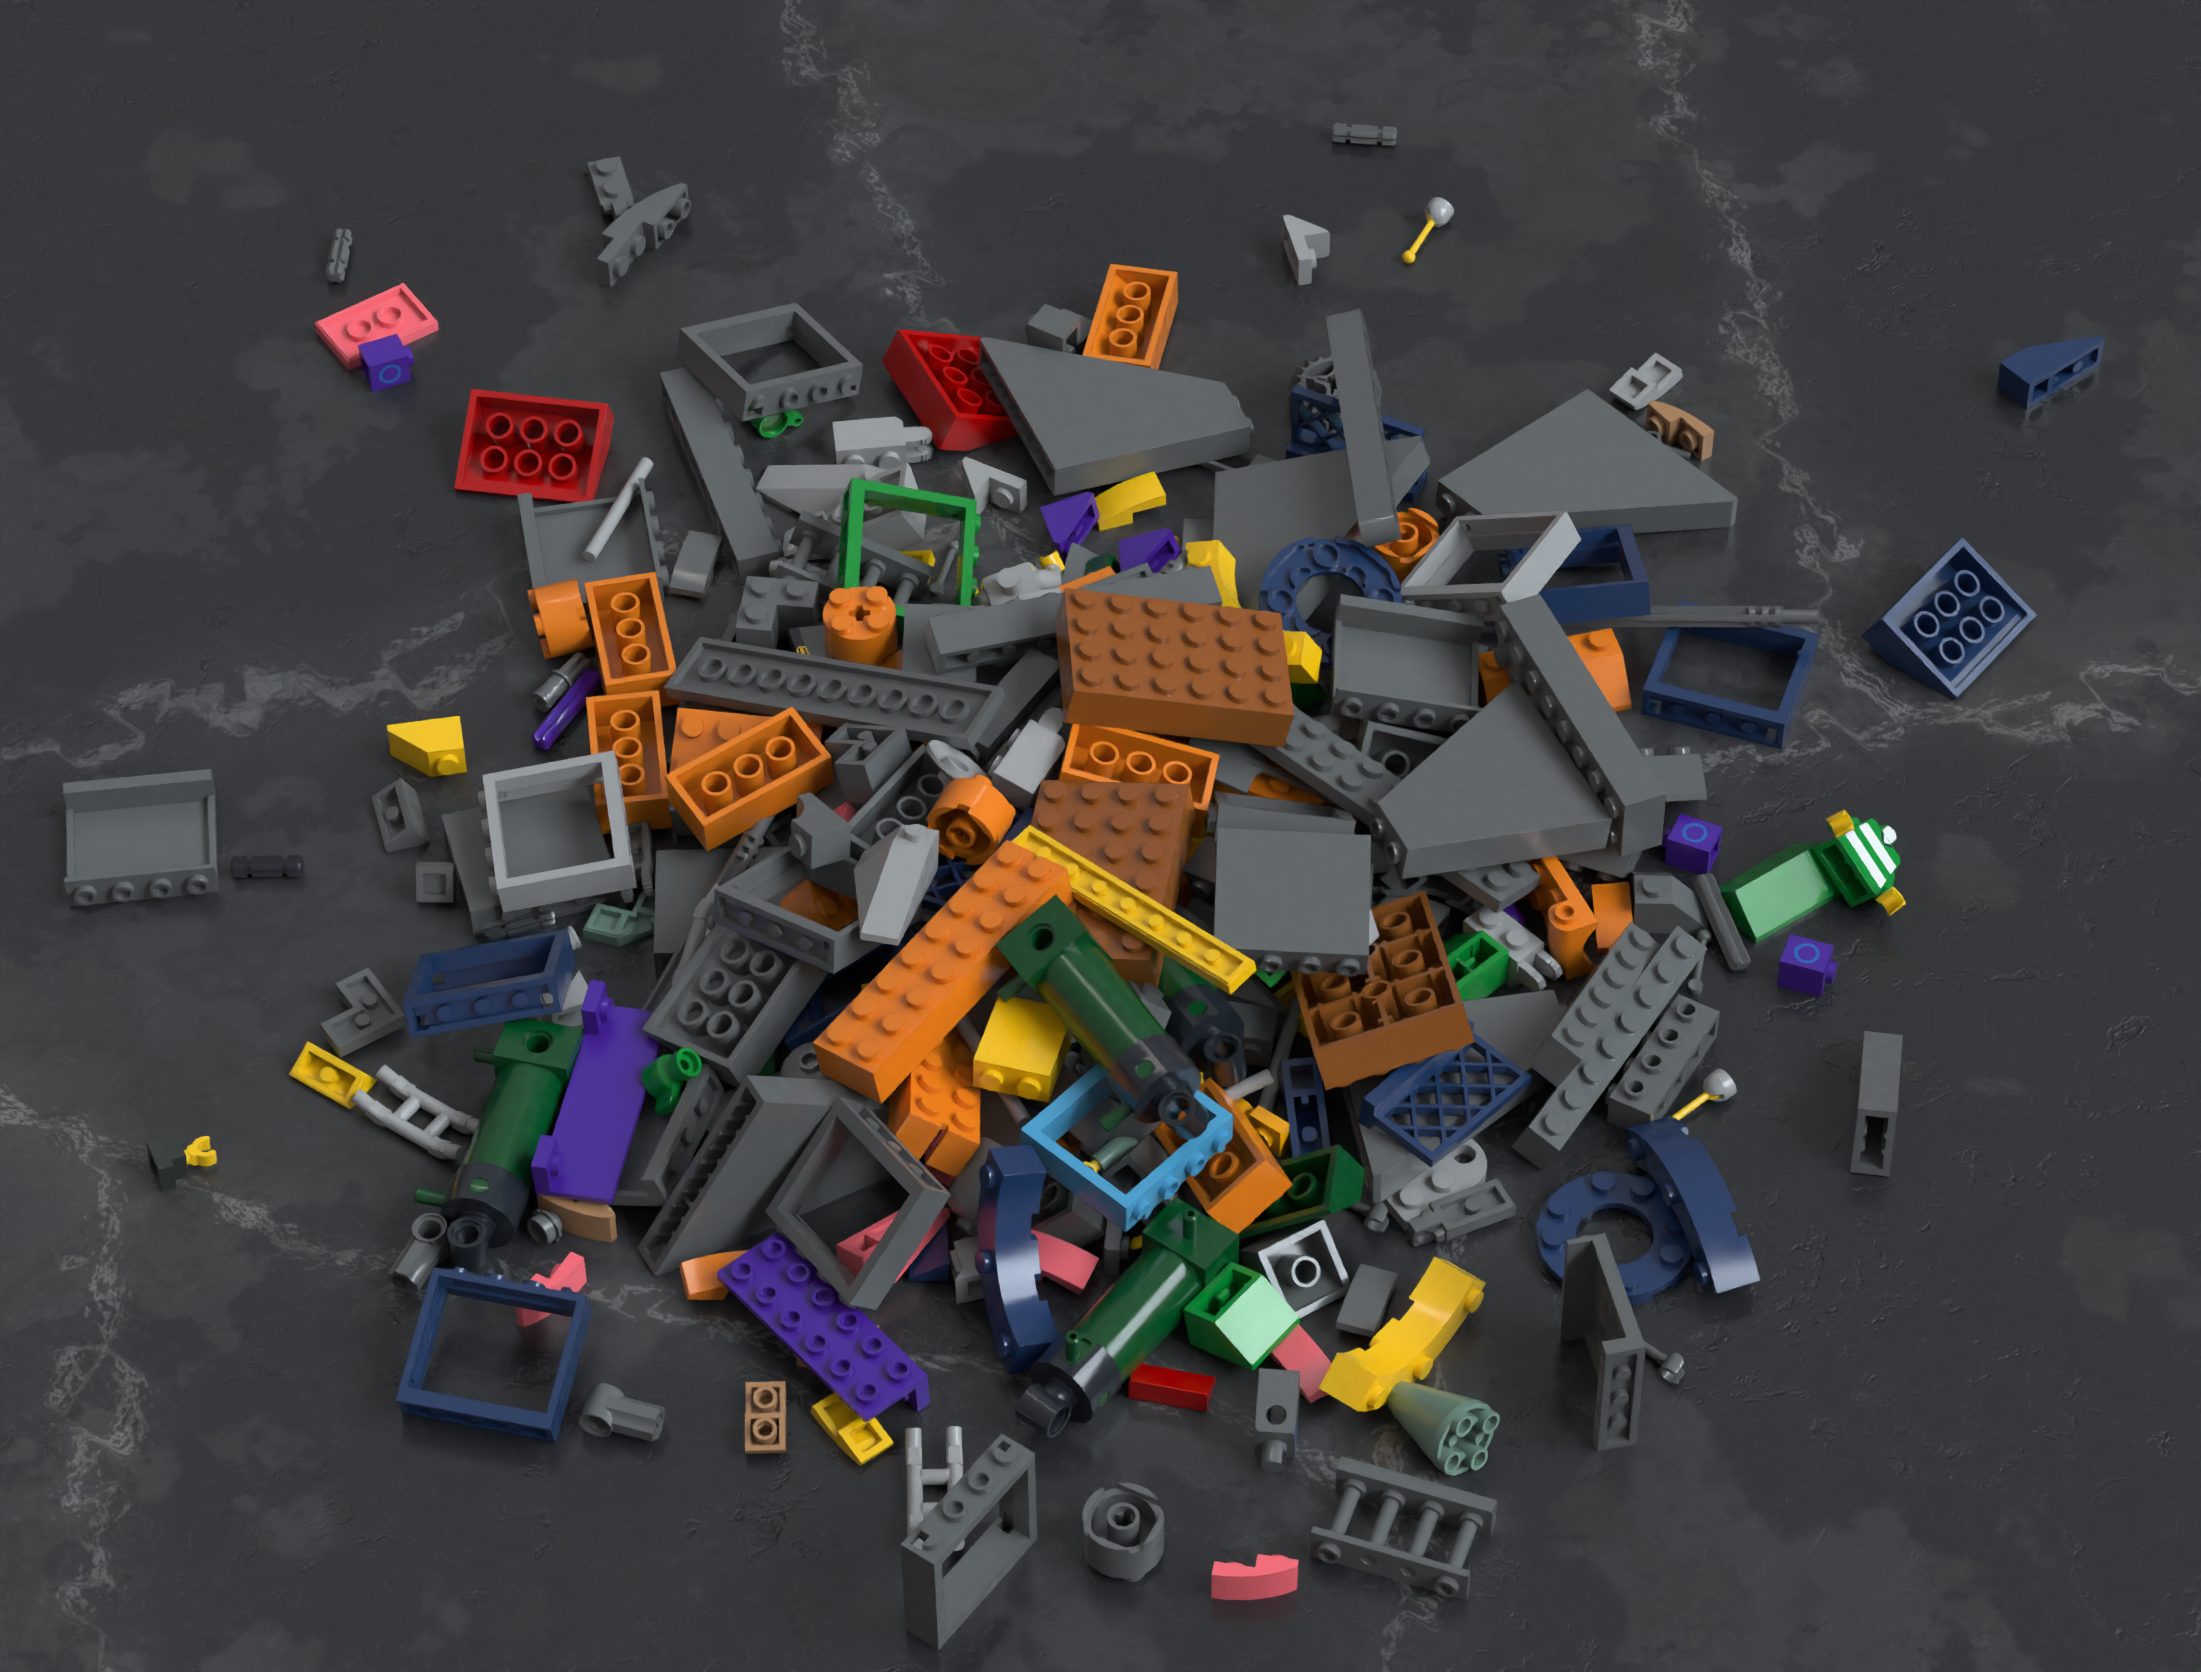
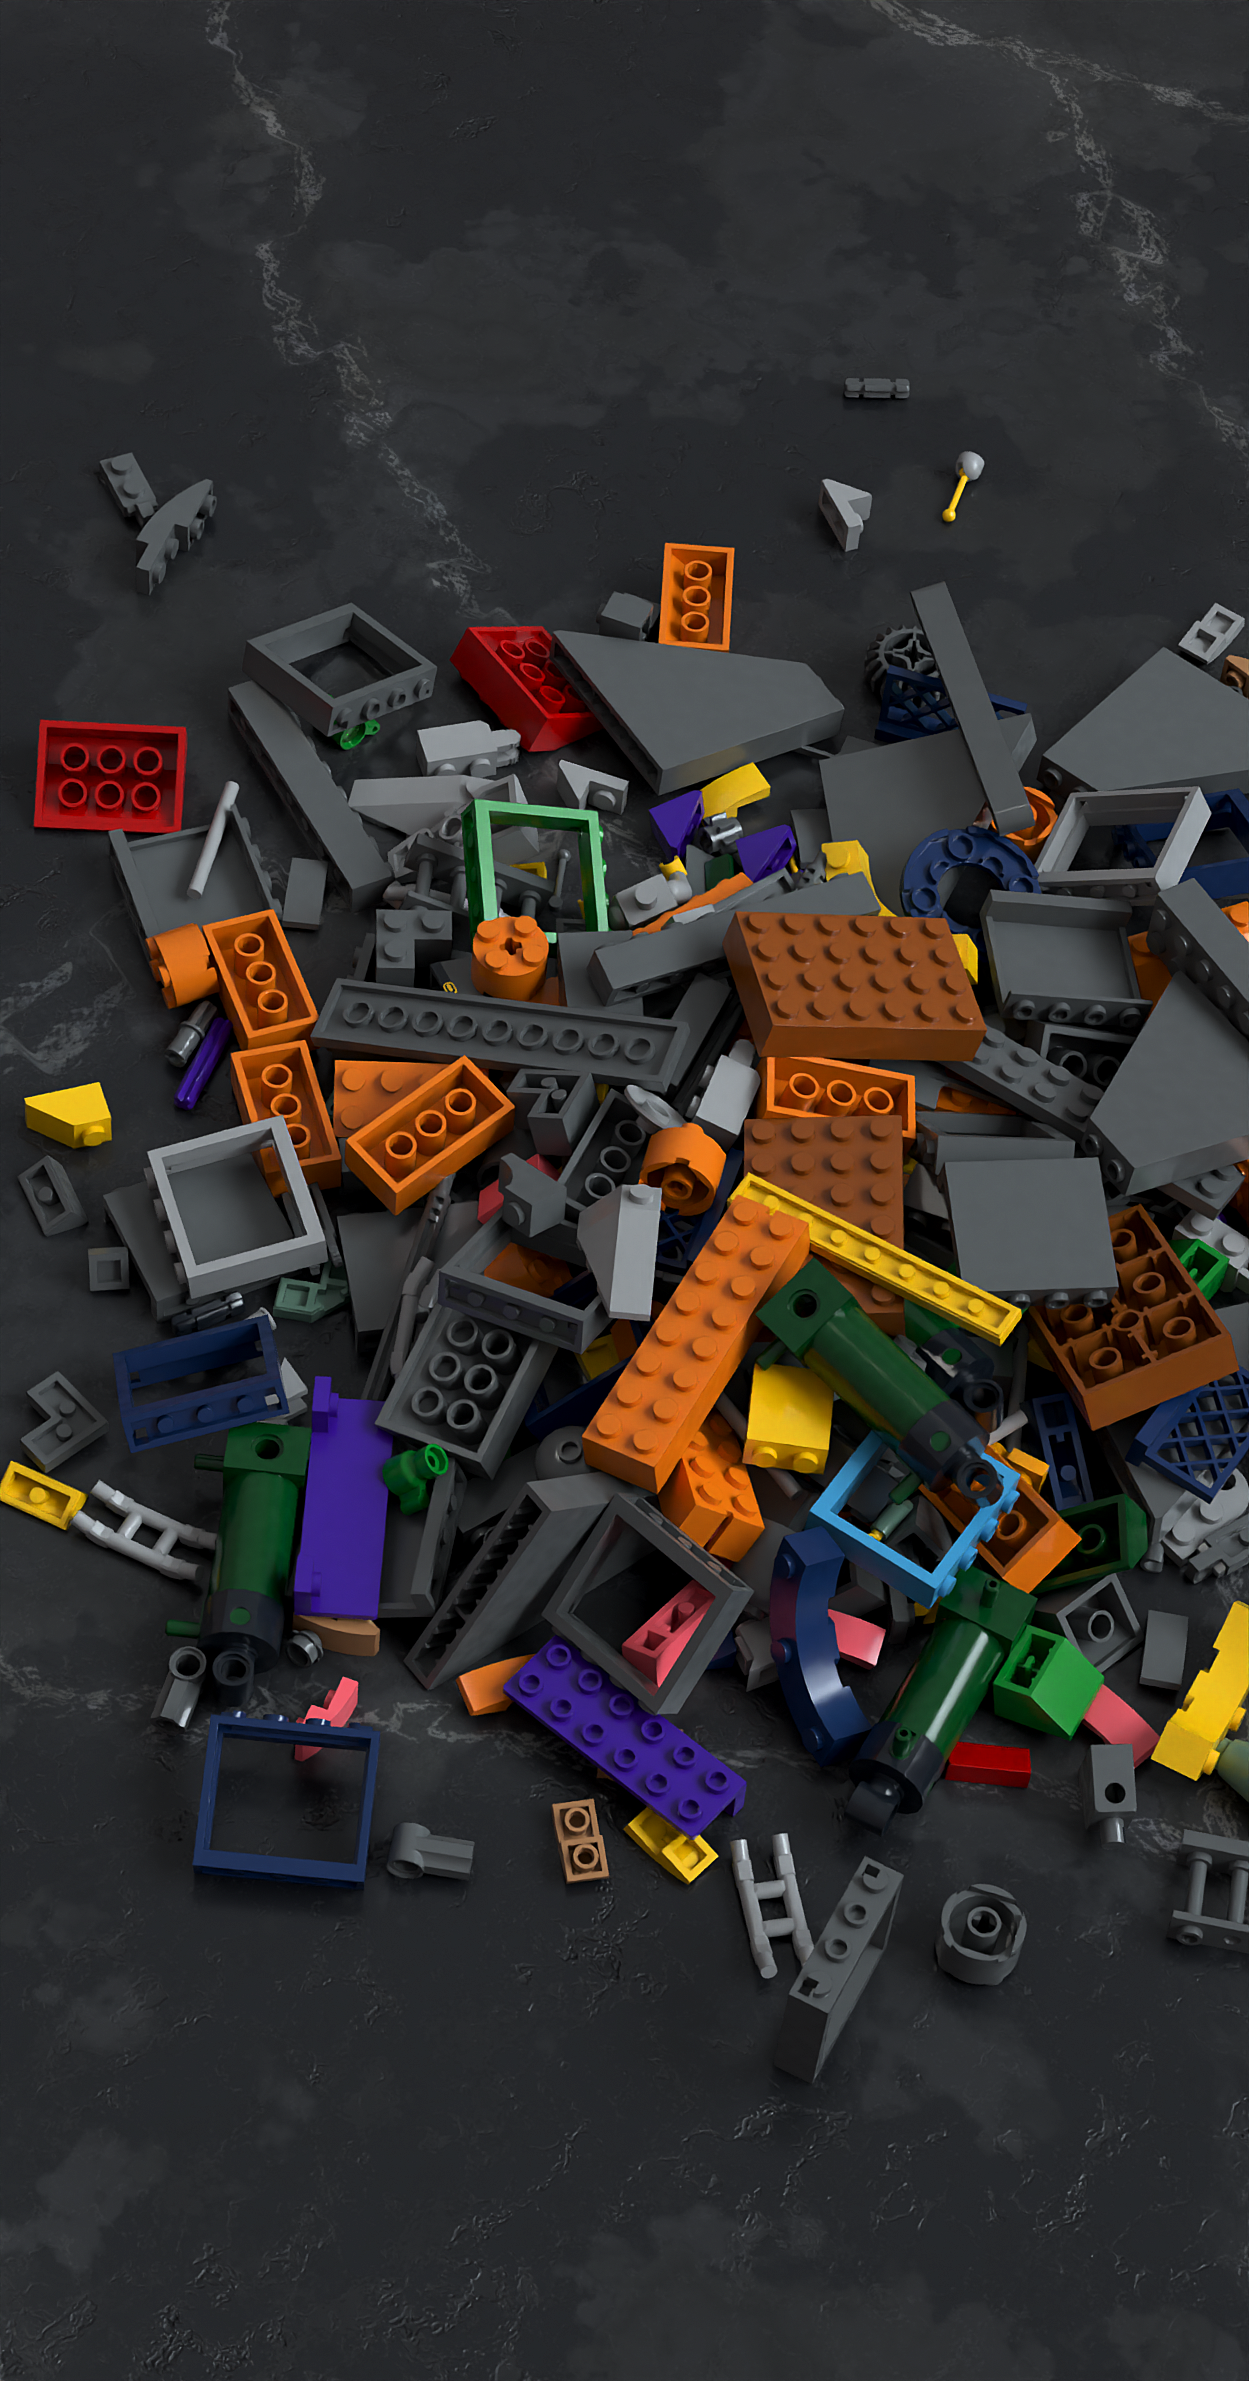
camera: 15 degrees left, 5 degrees up
(1105, 535) = (720, 834): none -> dark grey gear
(1269, 1578) = (1137, 1968): coral slope -> none

